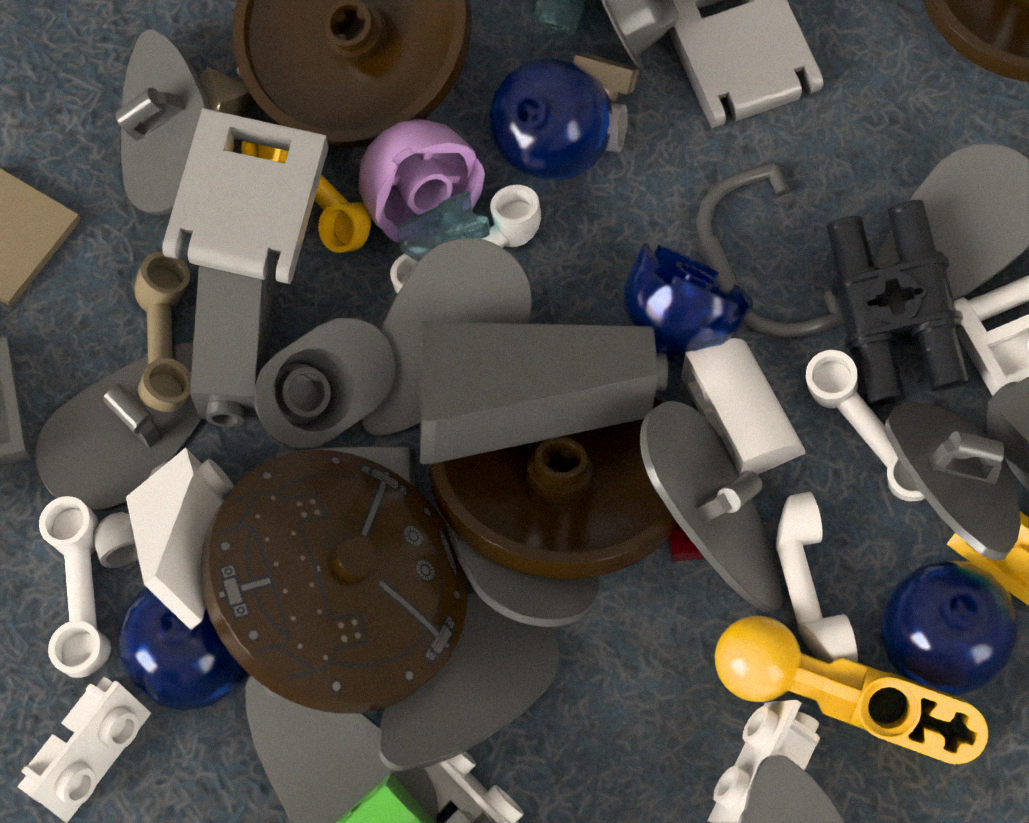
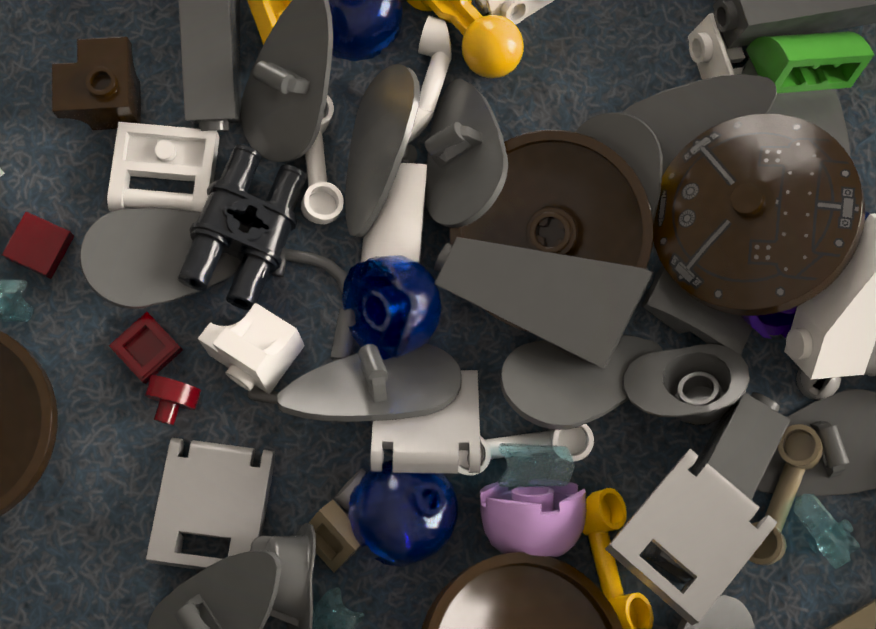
camera: 155 degrees left, 10 degrees up
(101, 329) = (829, 536): none -> clear light blue piece
(575, 196) = (433, 440): none -> light grey container
(658, 200) = (374, 388): none -> dark grey shield
(798, 188) = (254, 349): none -> white brick
(811, 469) = (380, 144): none -> dark grey shield
(850, 114) = (171, 397): none -> dark red tile
(909, 152) = (145, 347): none -> dark red tile

